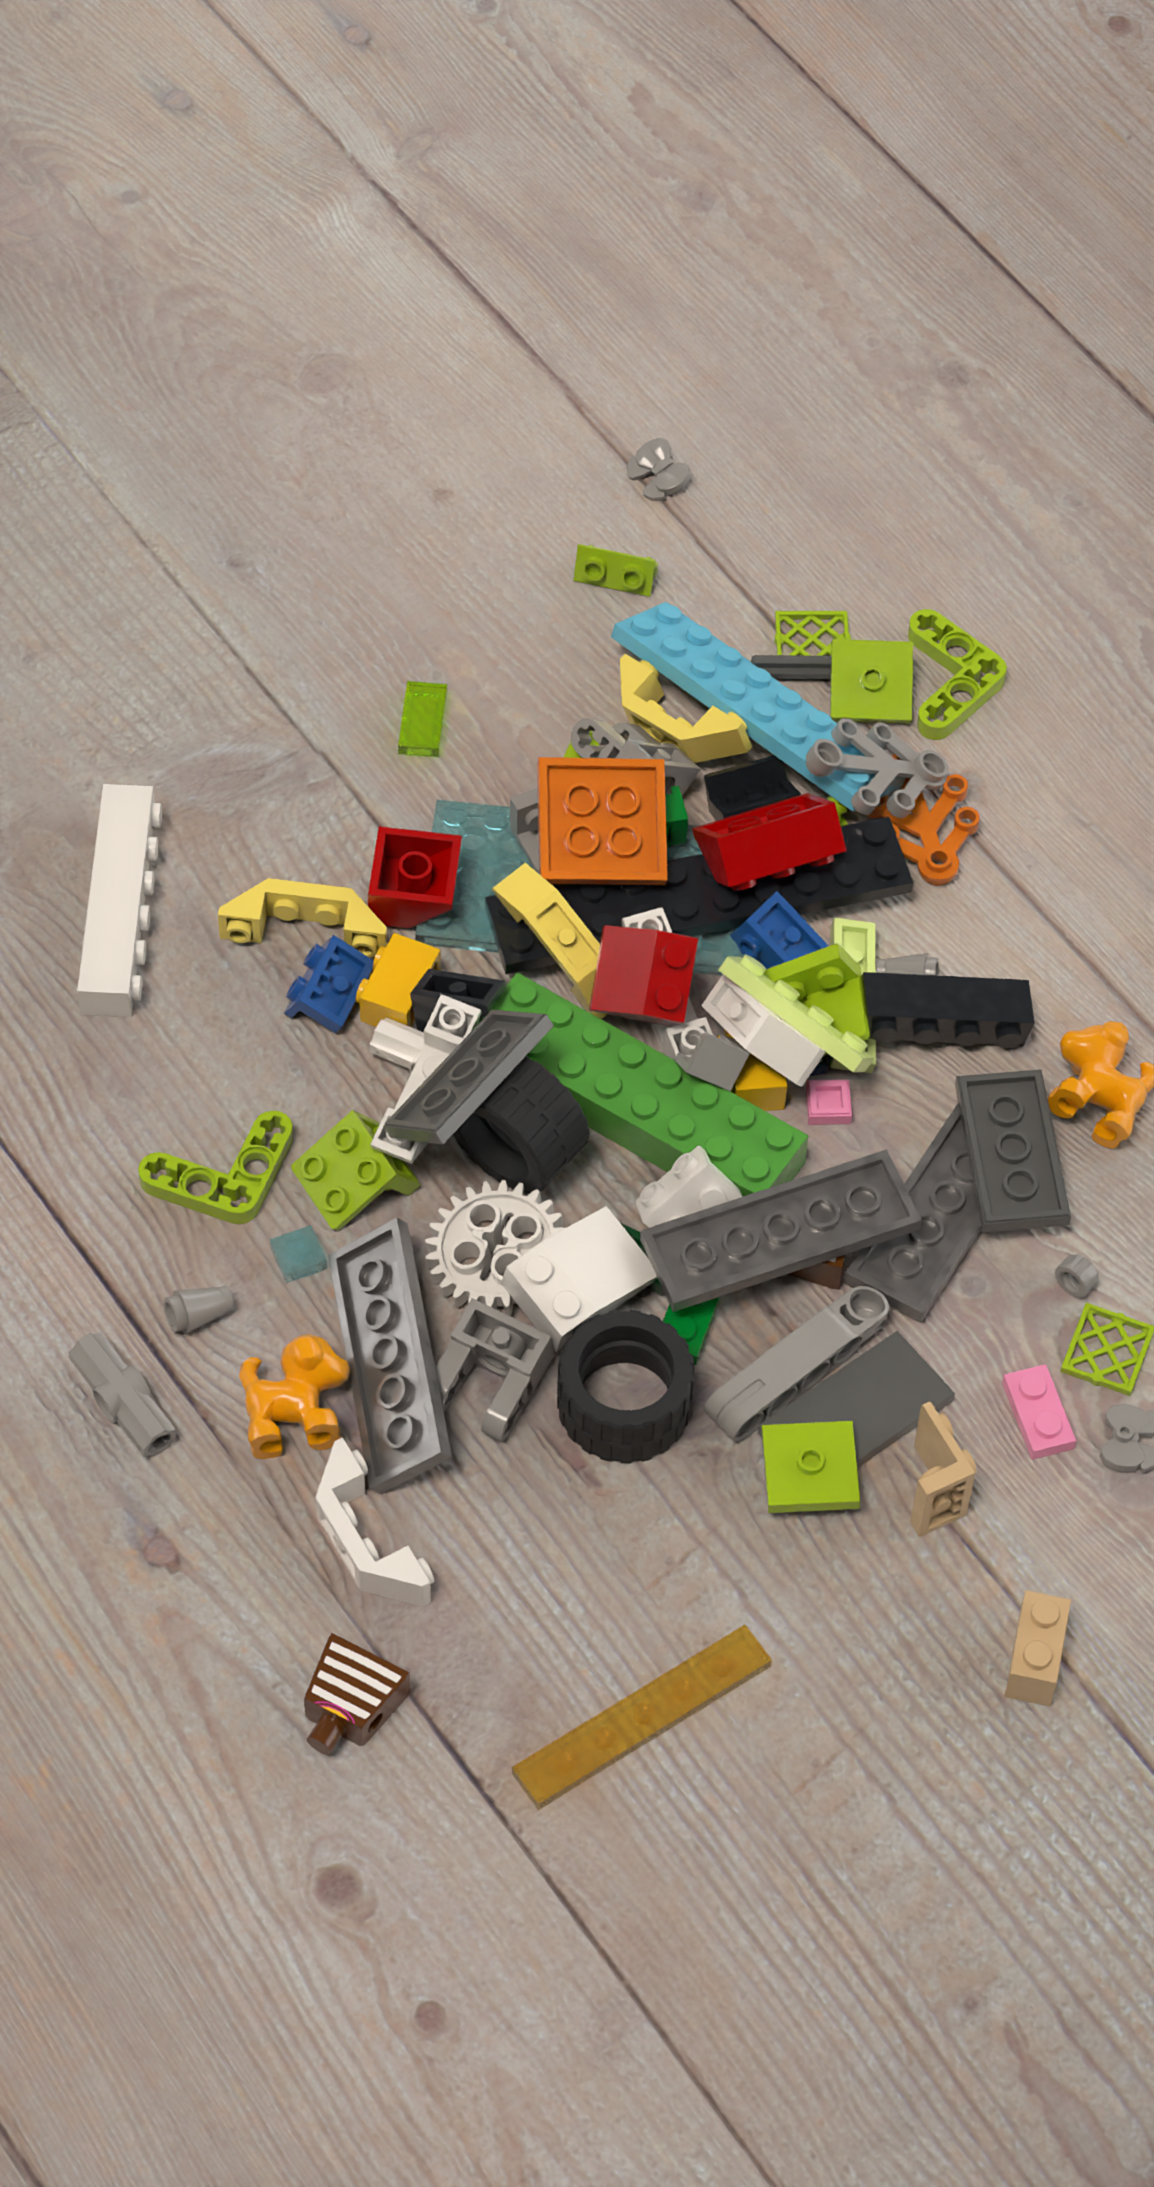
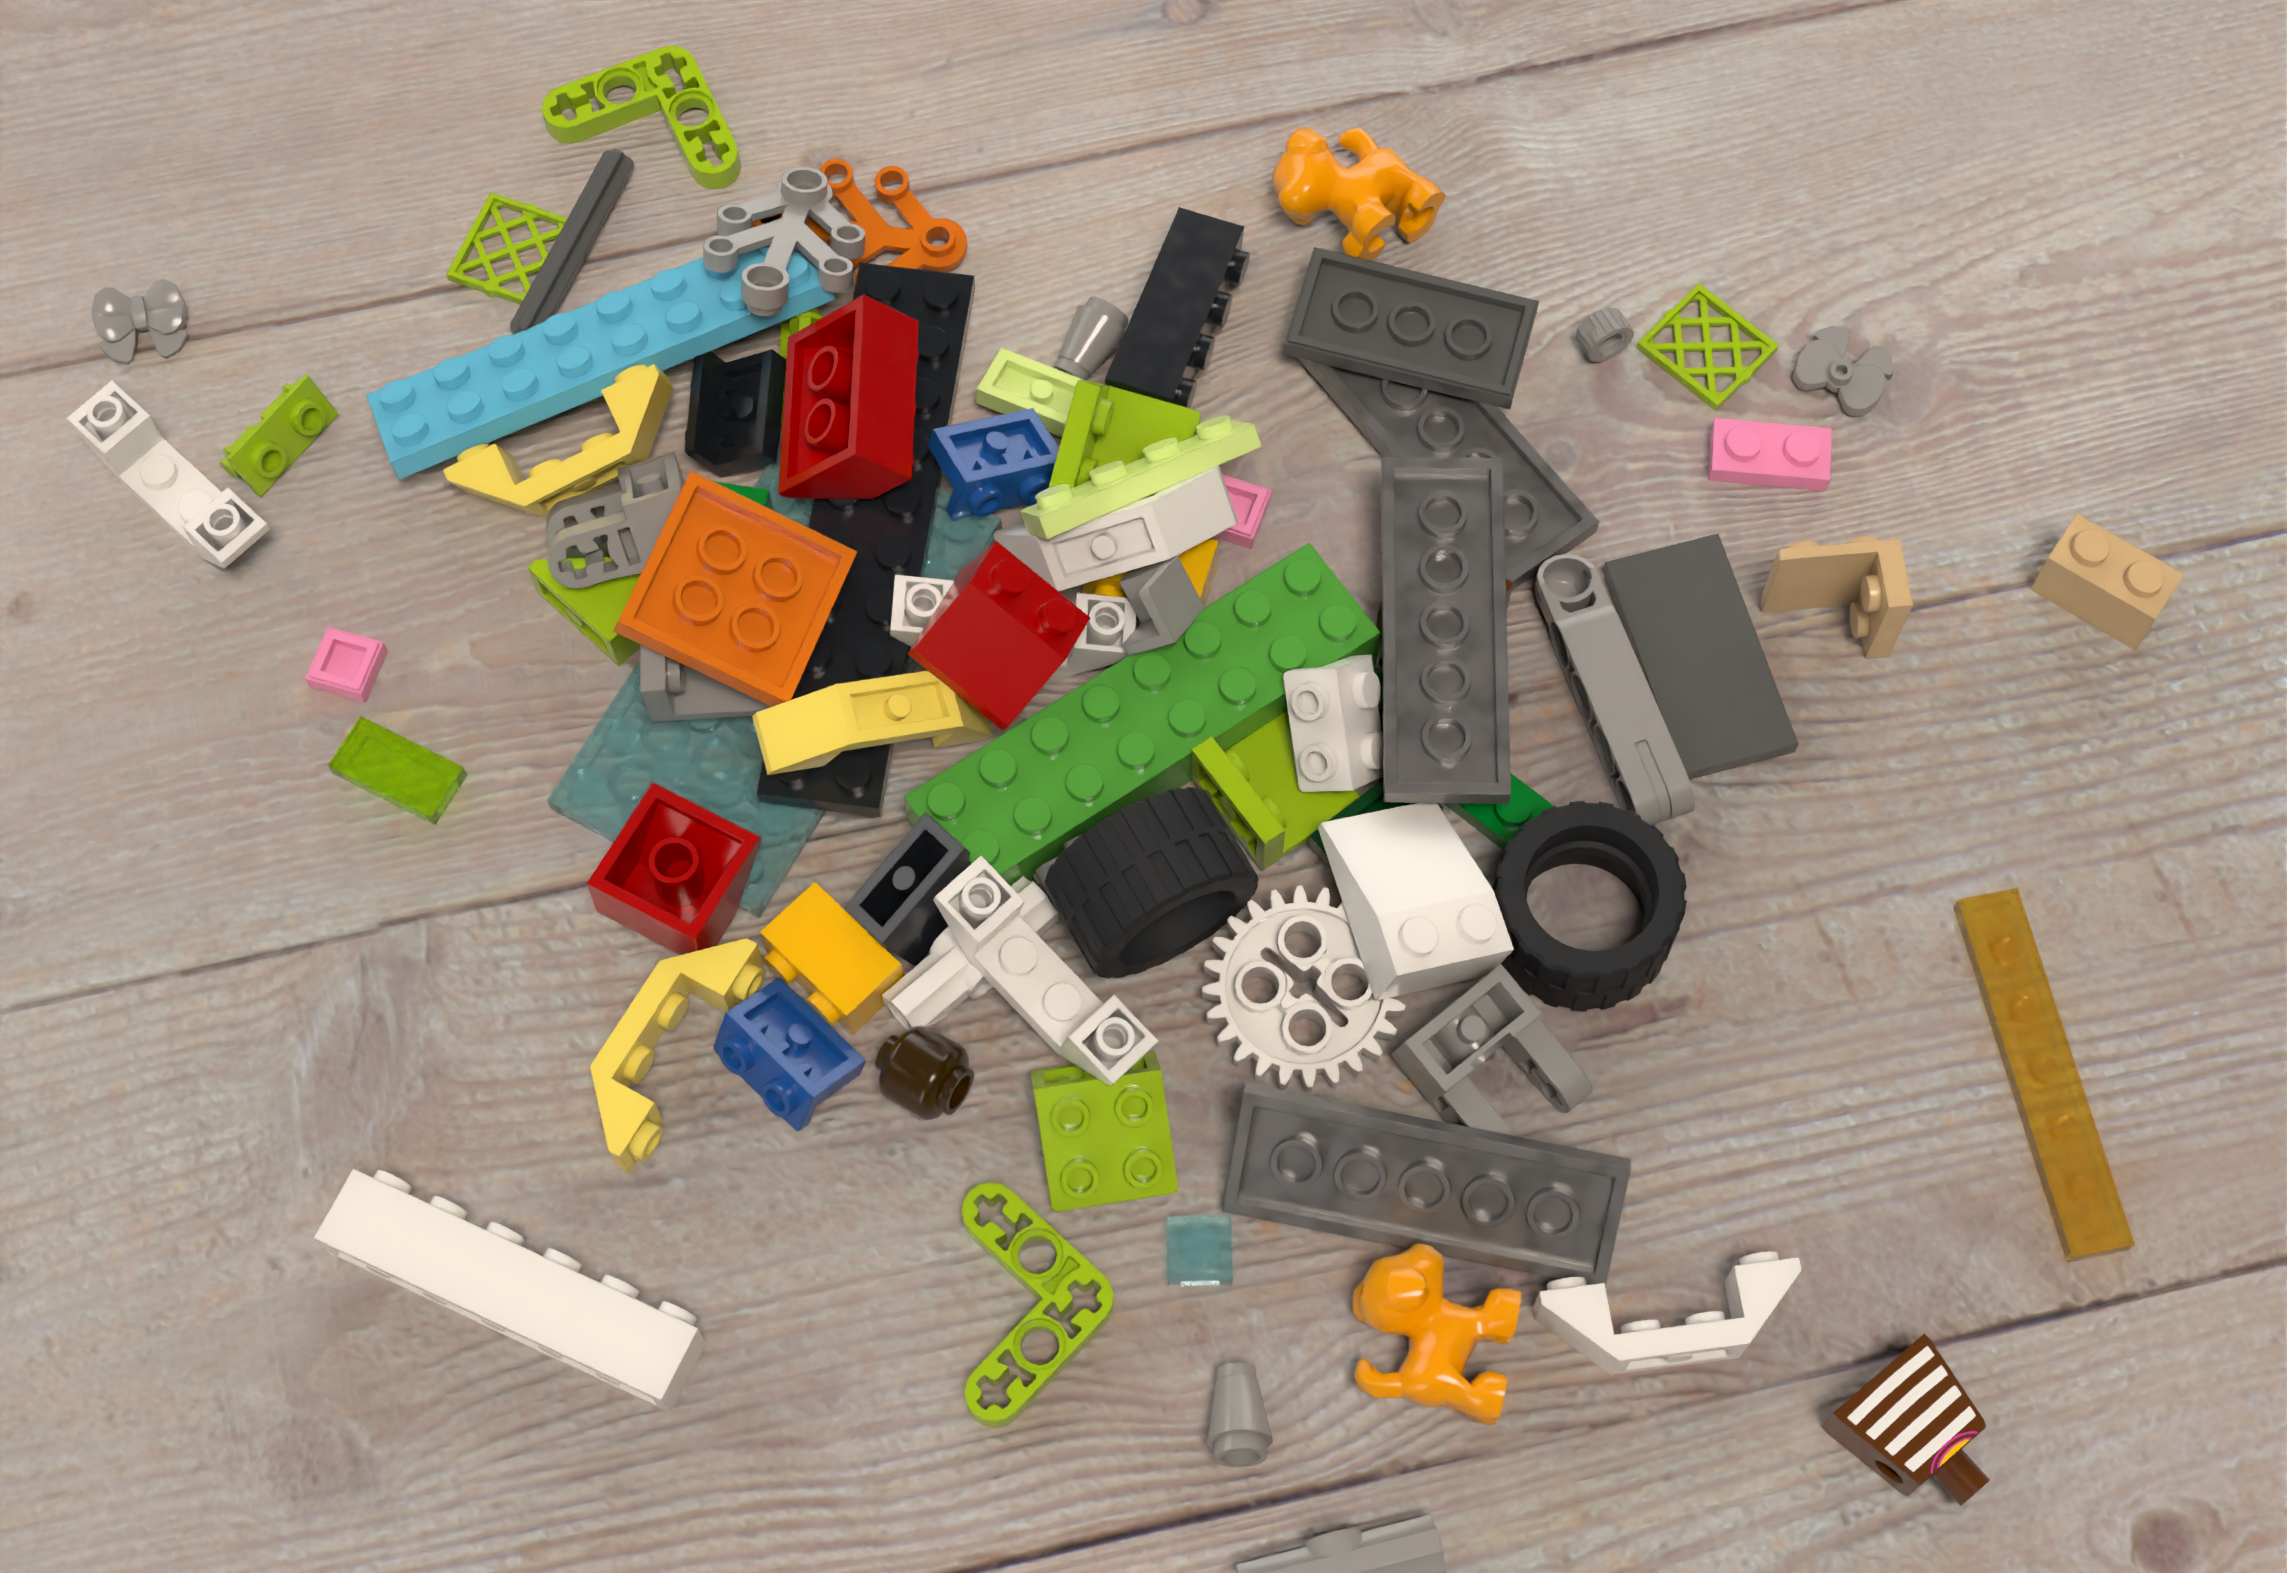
camera: 65 degrees left, 10 degrees up
(345, 1058) = (924, 1072): none -> dark brown head
(467, 1076) = (1097, 908): dark grey tile -> none
(480, 666) = (346, 664): none -> bright pink tile
(558, 524) = (131, 446): none -> white slope
(618, 1175) = (1260, 792): none -> lime bracket
(810, 1467) = (1772, 735): lime plate -> none
(871, 681) = (627, 204): lime plate -> none

